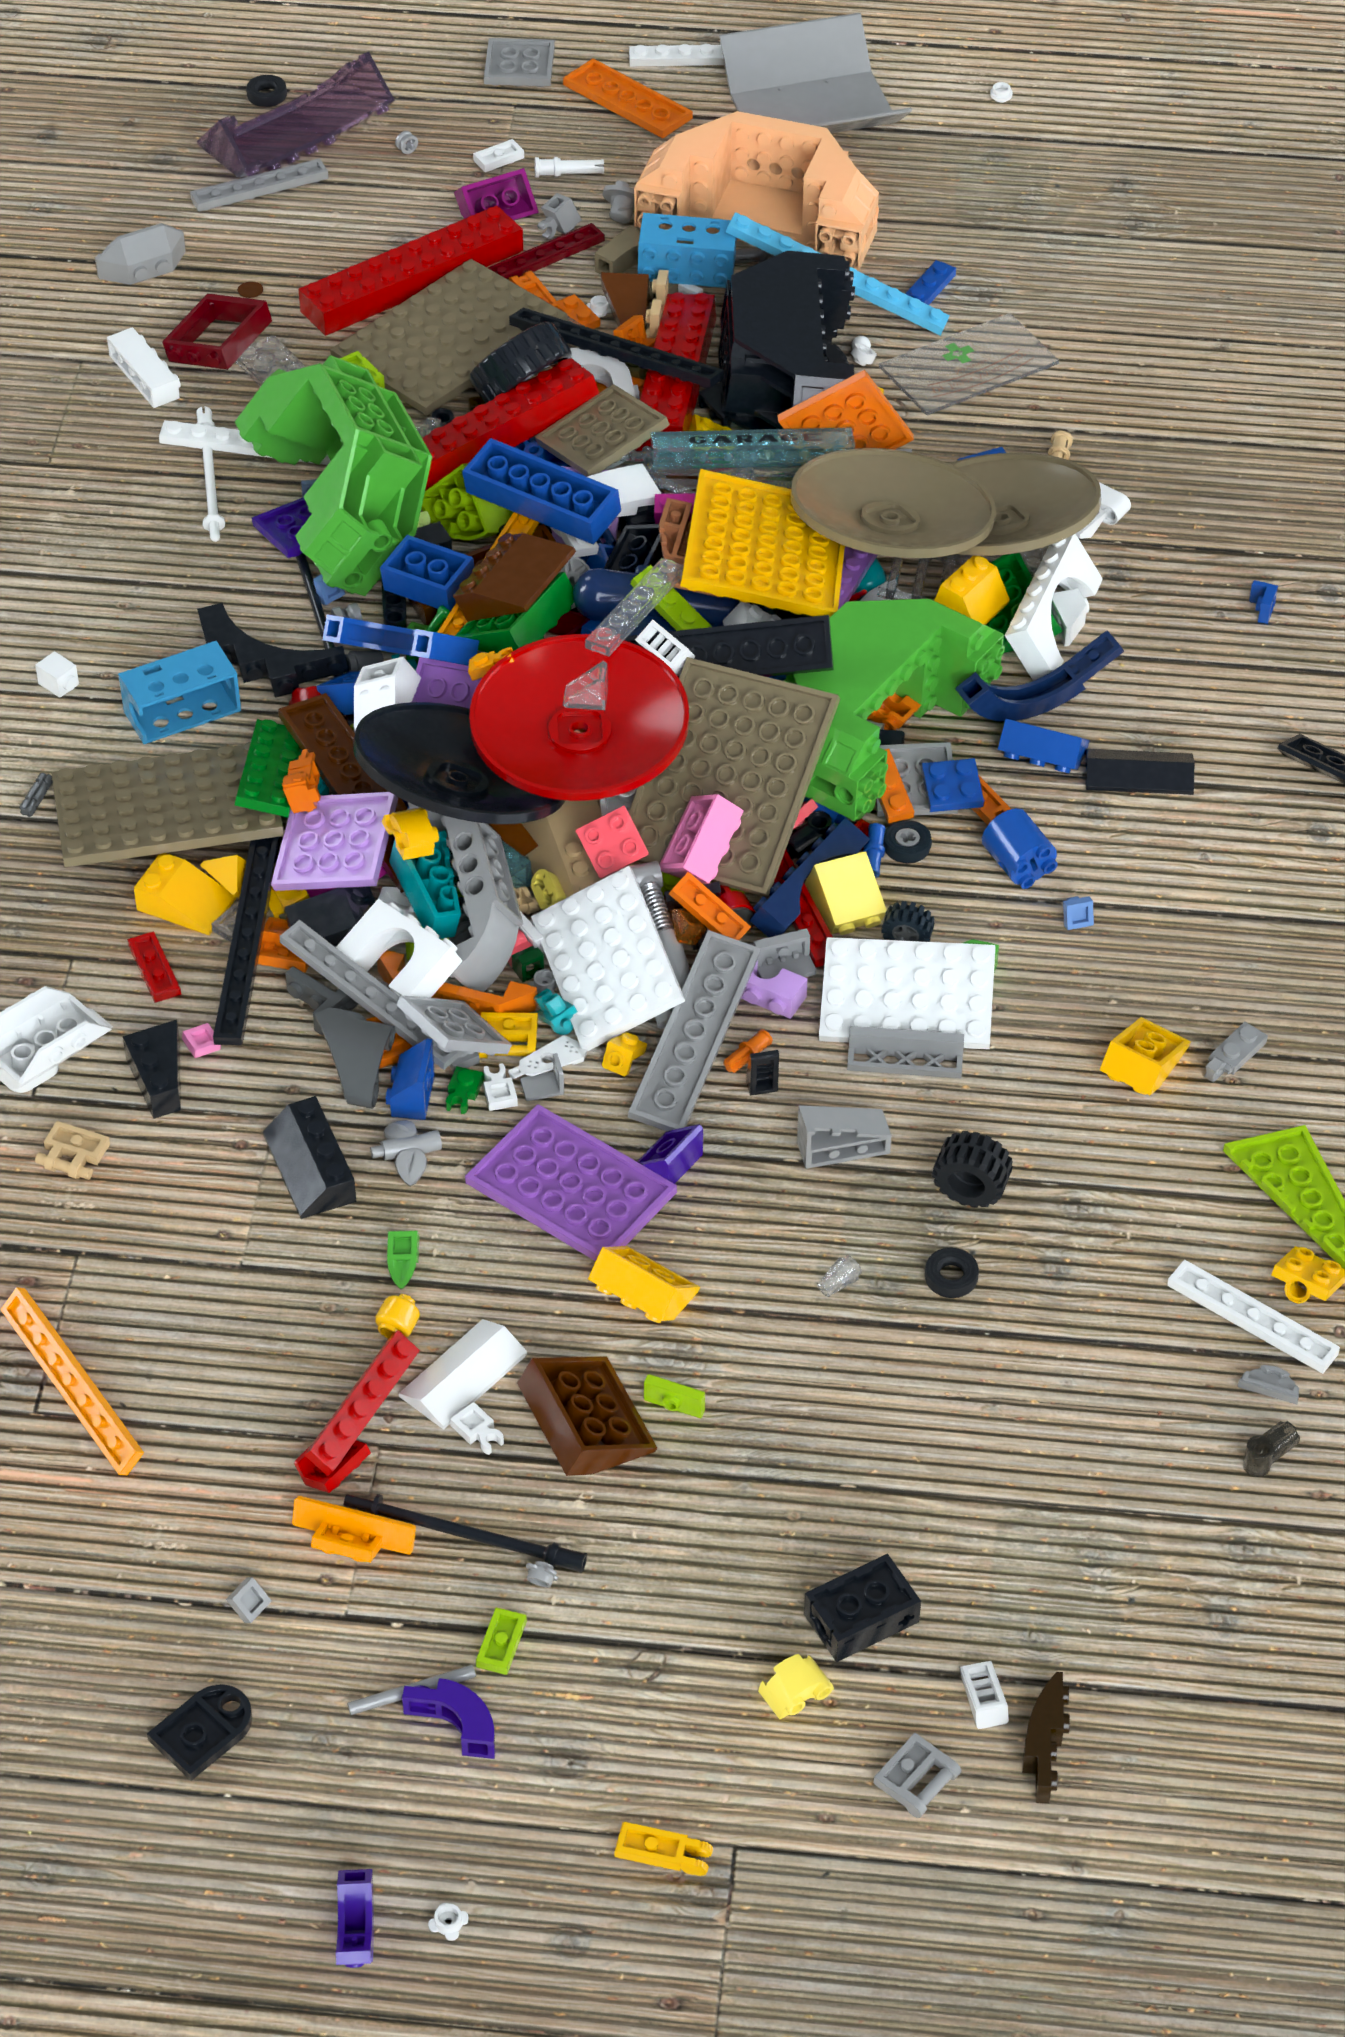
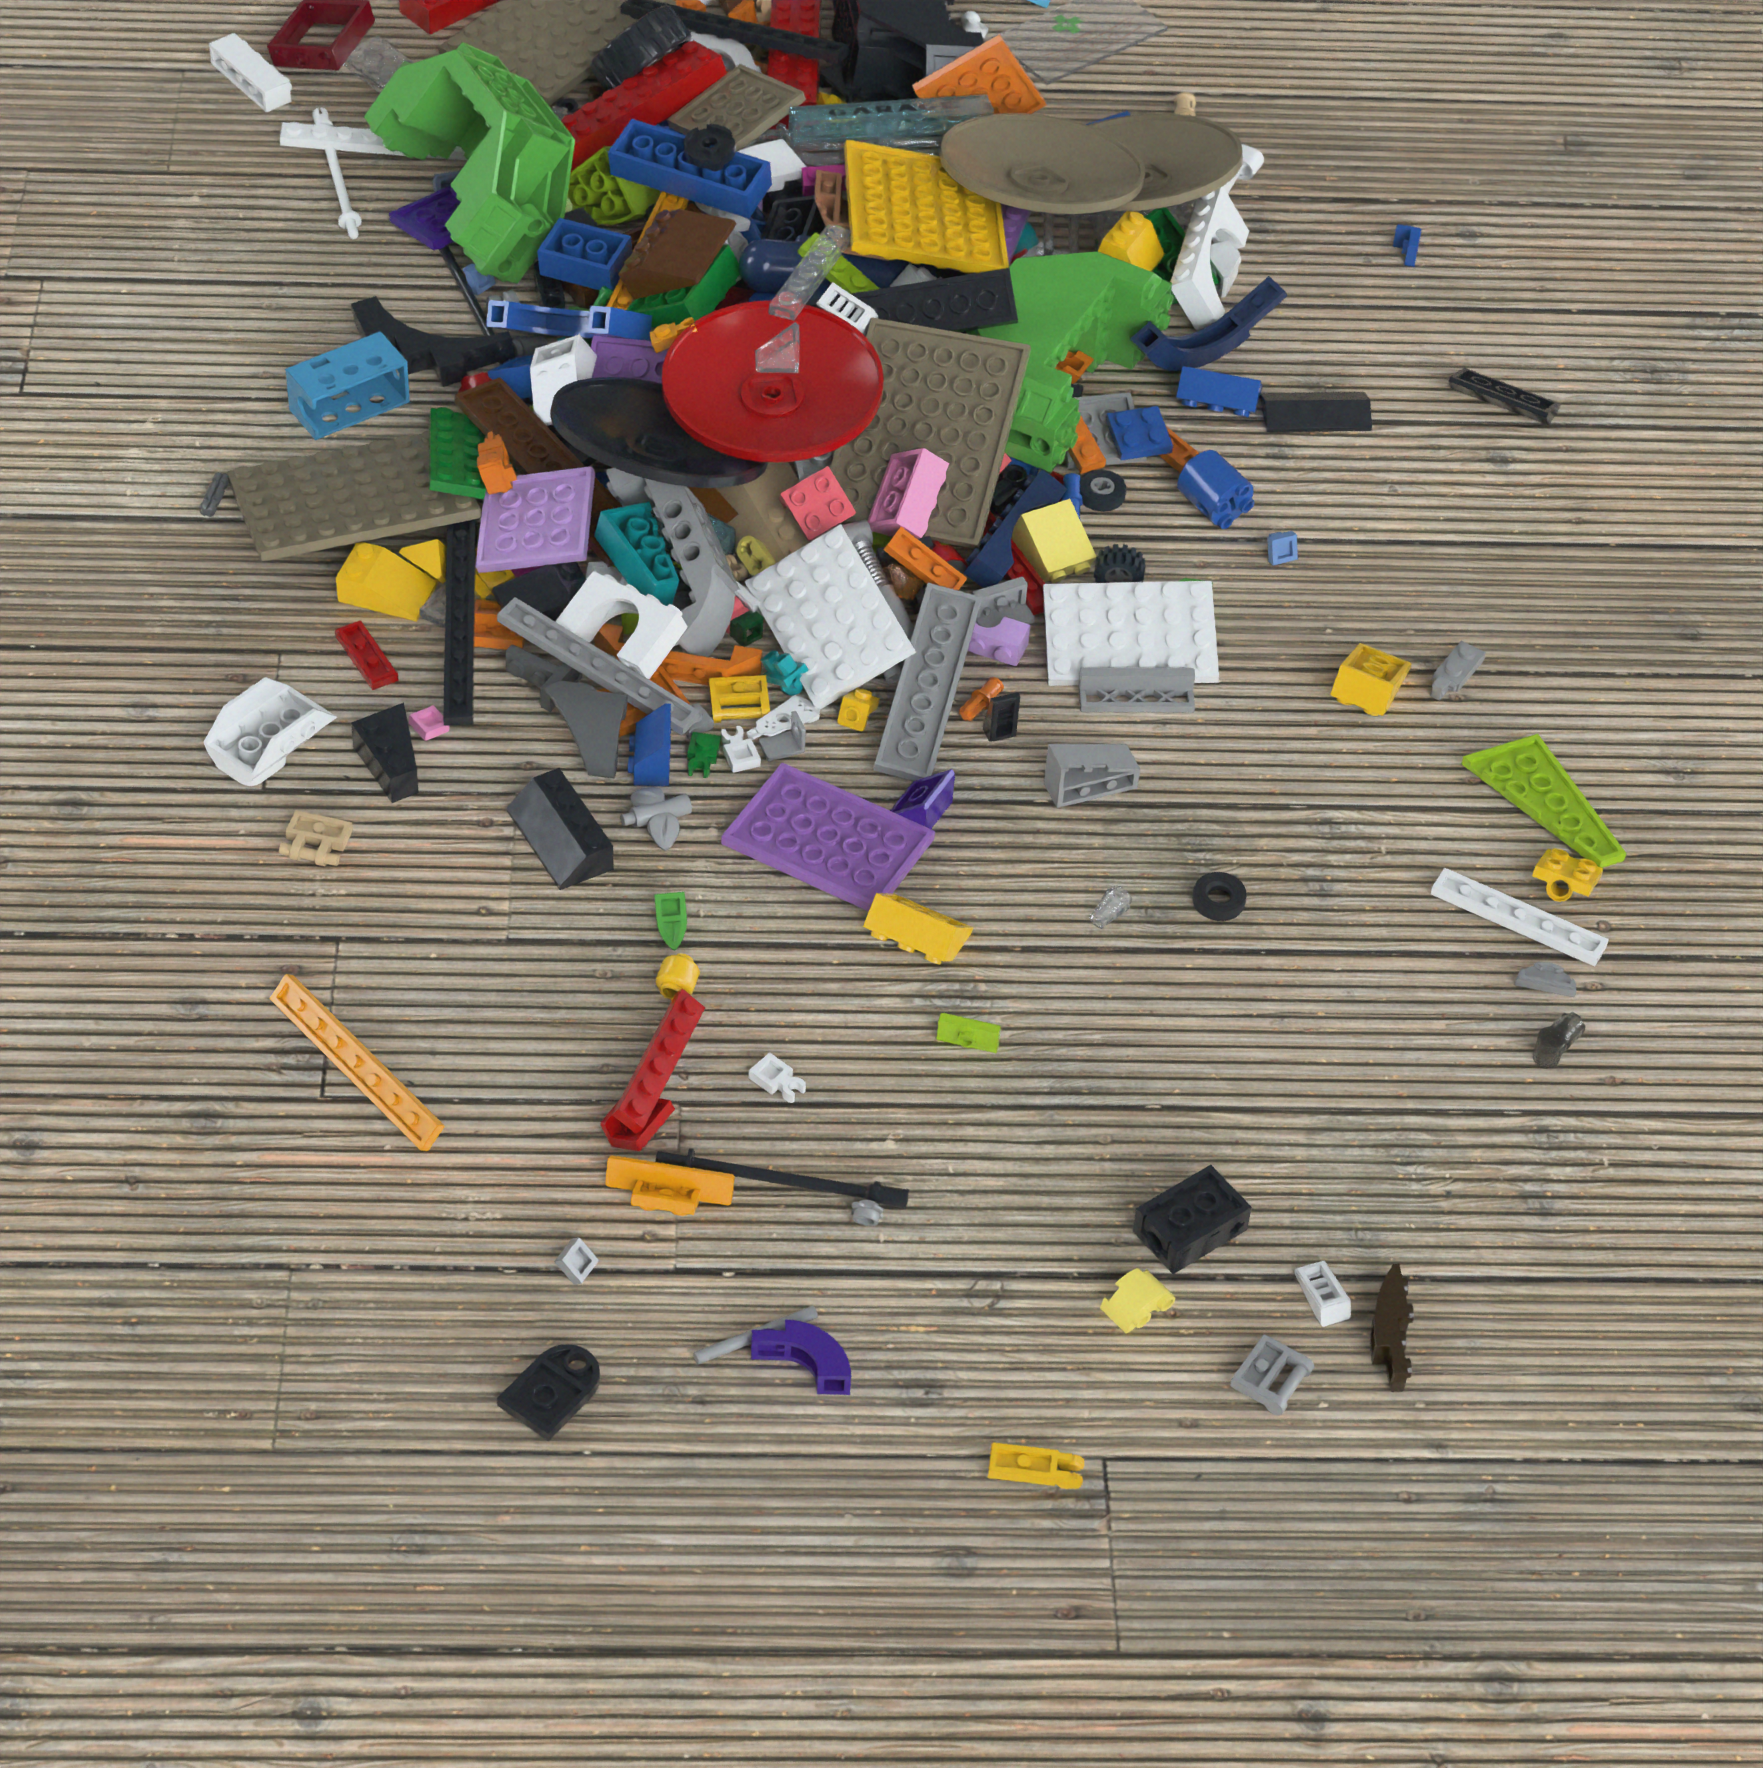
camera: 10 degrees left, 0 degrees up
(57, 674) = (215, 375): white brick -> none
(355, 1918) = (741, 1557): dark purple arch -> none
(412, 832) = (619, 502): yellow cylinder -> none
(448, 1912) = (836, 1545): white plate -> none
(453, 1025) = (688, 690): light grey plate -> none
(464, 1372) = (752, 1026): white slope -> none
(501, 1641) = (838, 1280): lime plate -> none
(544, 980) = (767, 643): light grey plate -> none
(563, 482) = (712, 158): none -> black plate
(584, 1413) = (881, 1056): reddish brown slope -> none
(972, 1169) = (1226, 795): black tyre -> none

